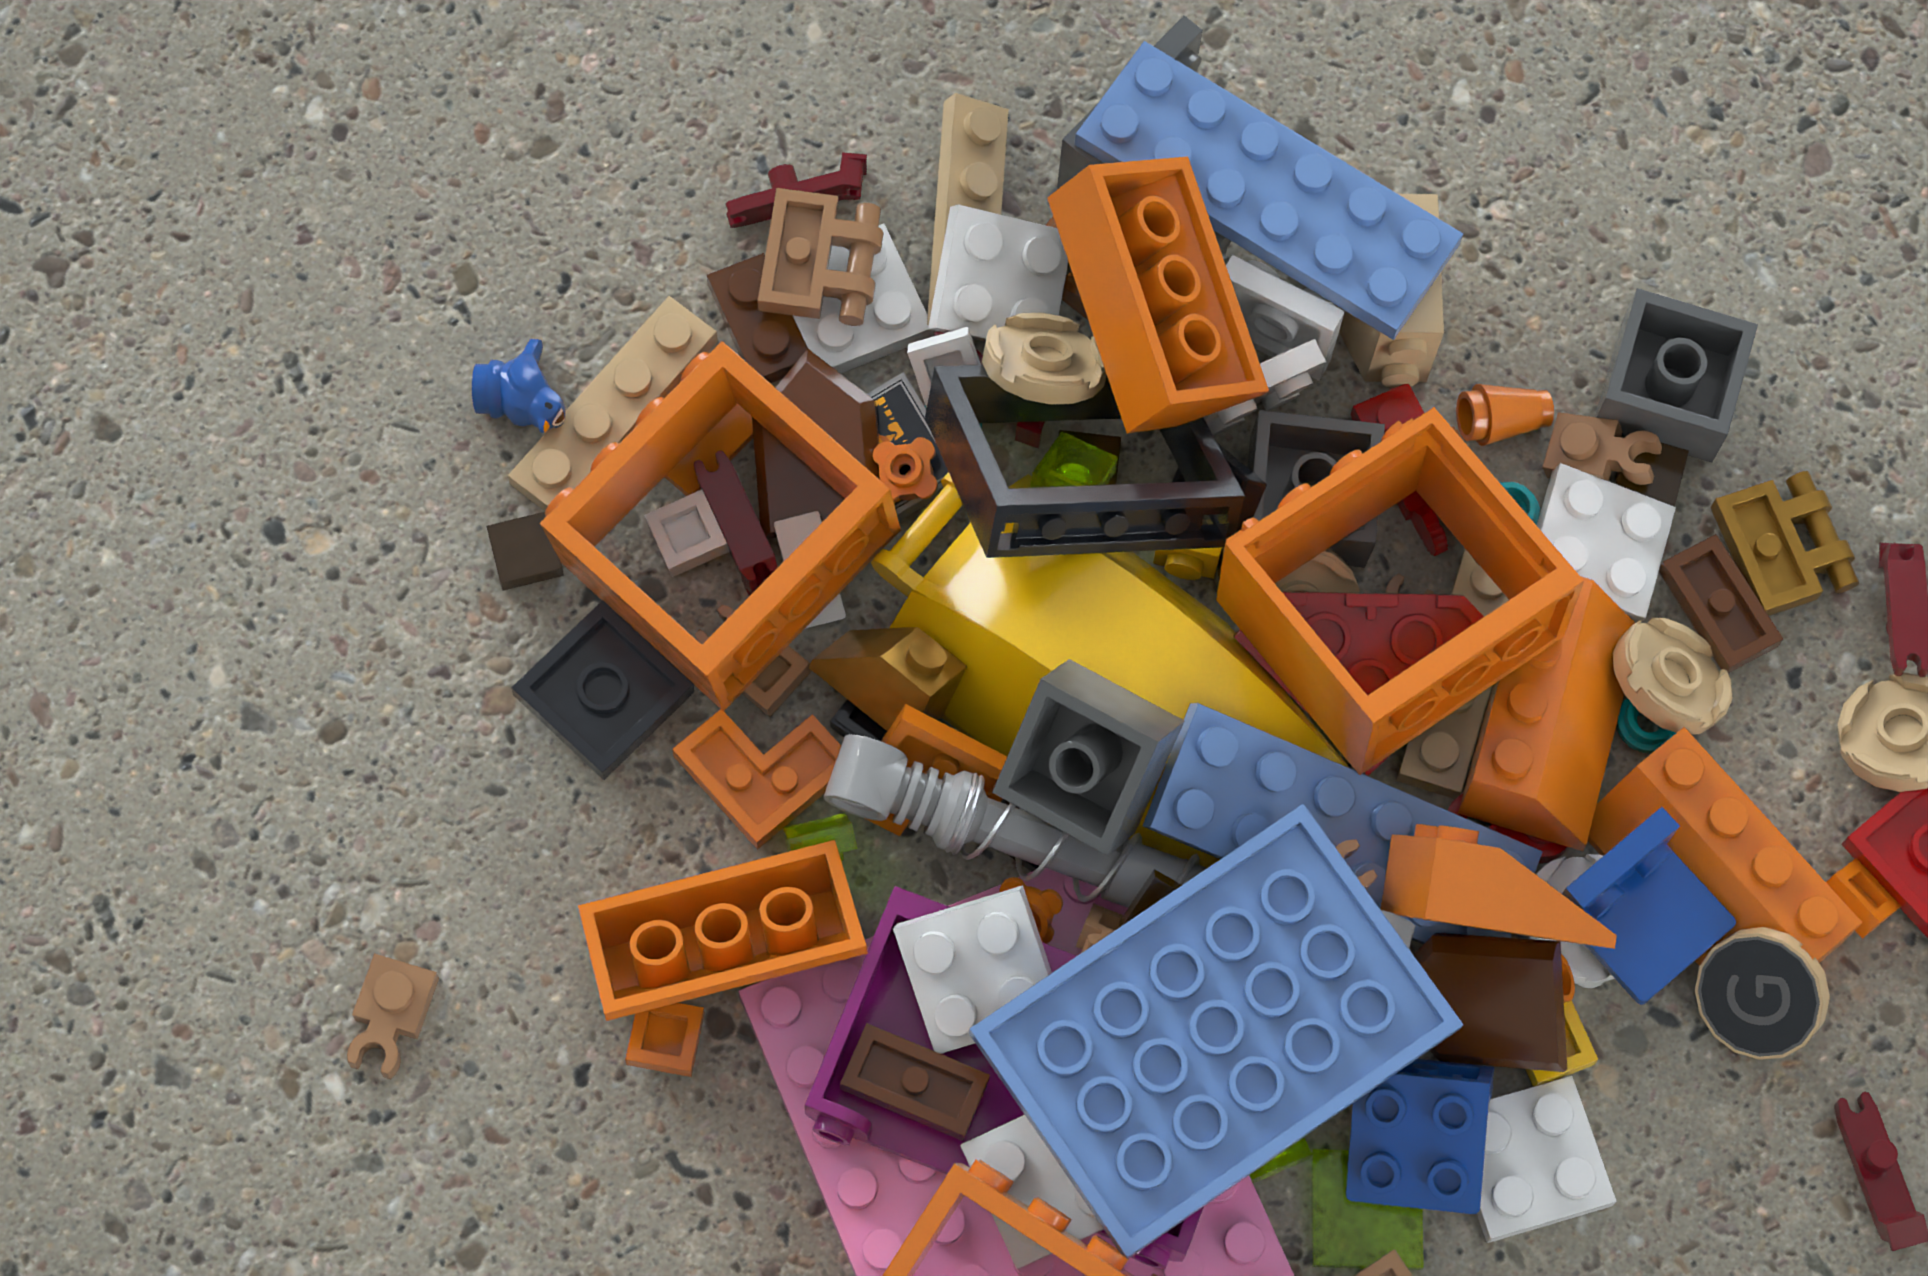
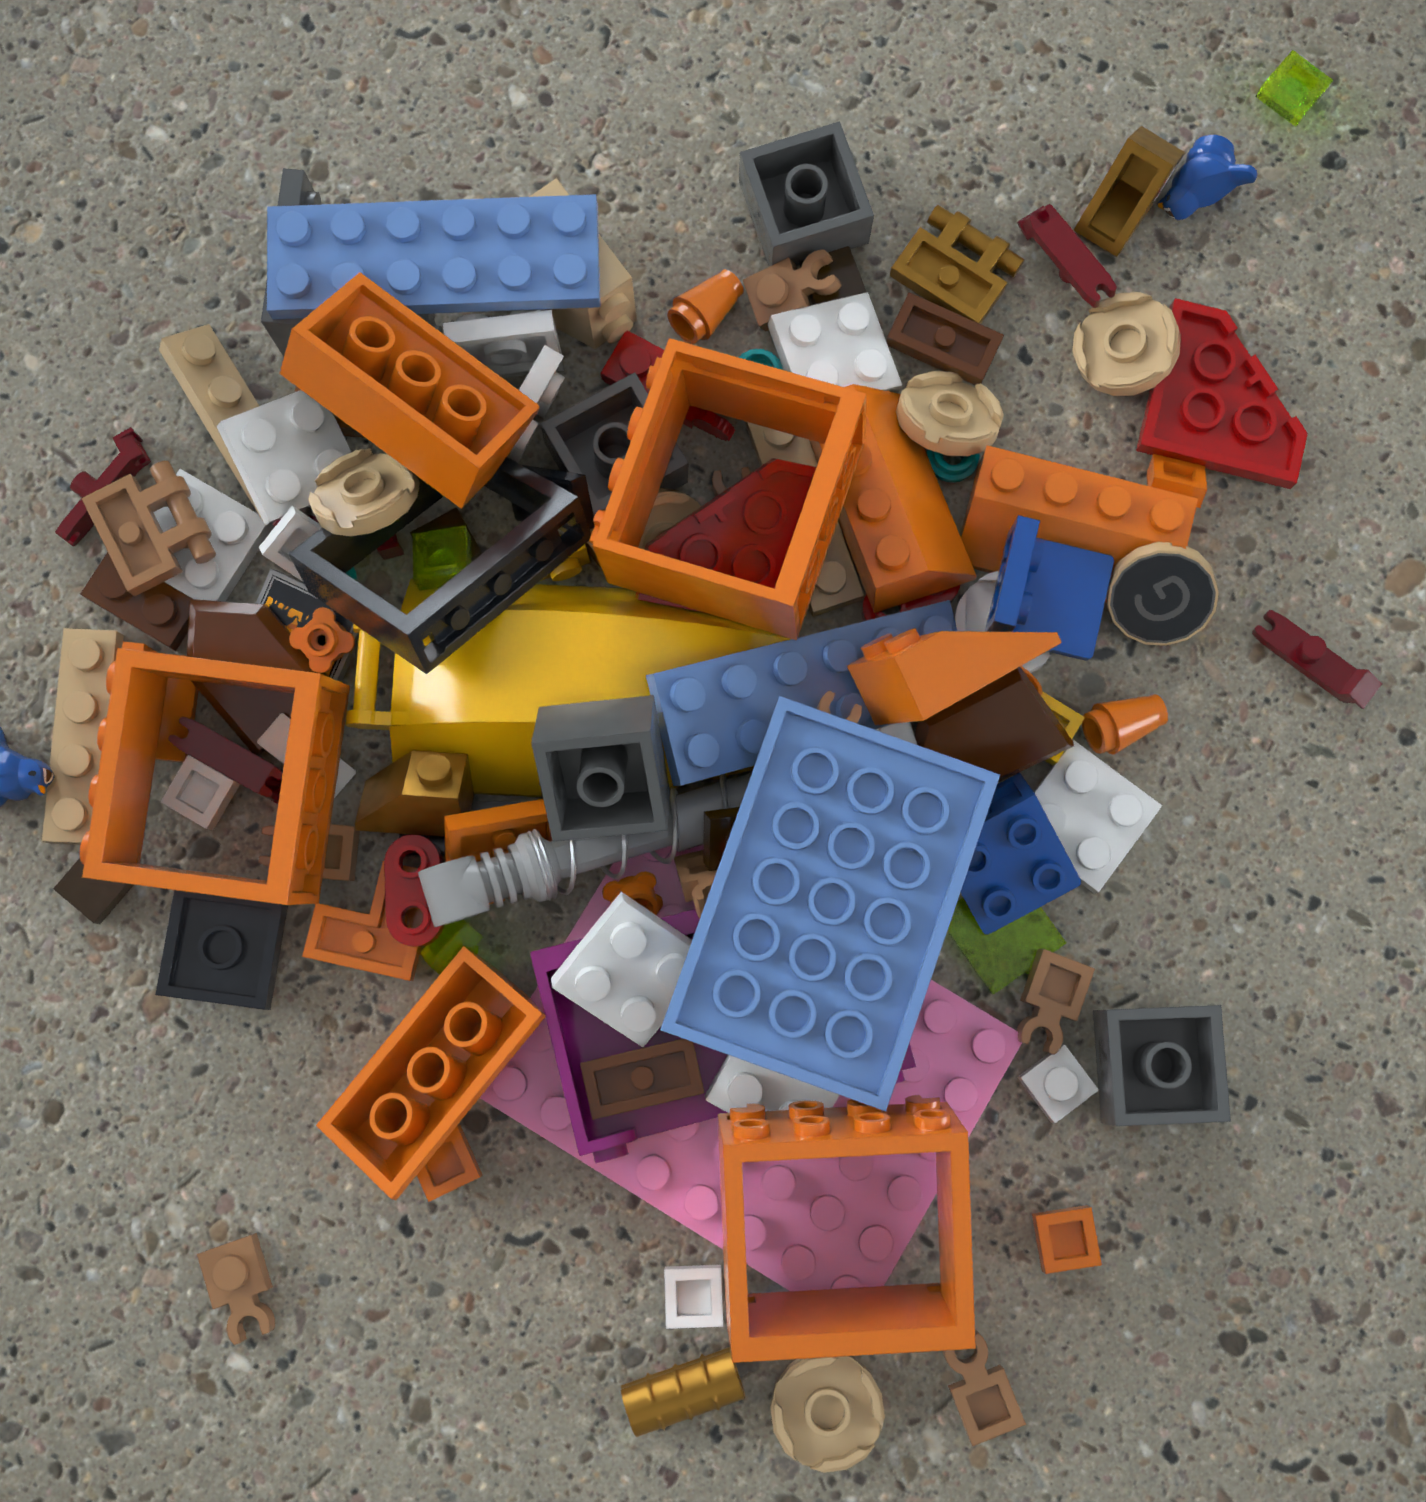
camera: 30 degrees left, 10 degrees up
(815, 756) = (405, 890): none -> red plate
(1634, 1093) = (1122, 722): none -> orange cone

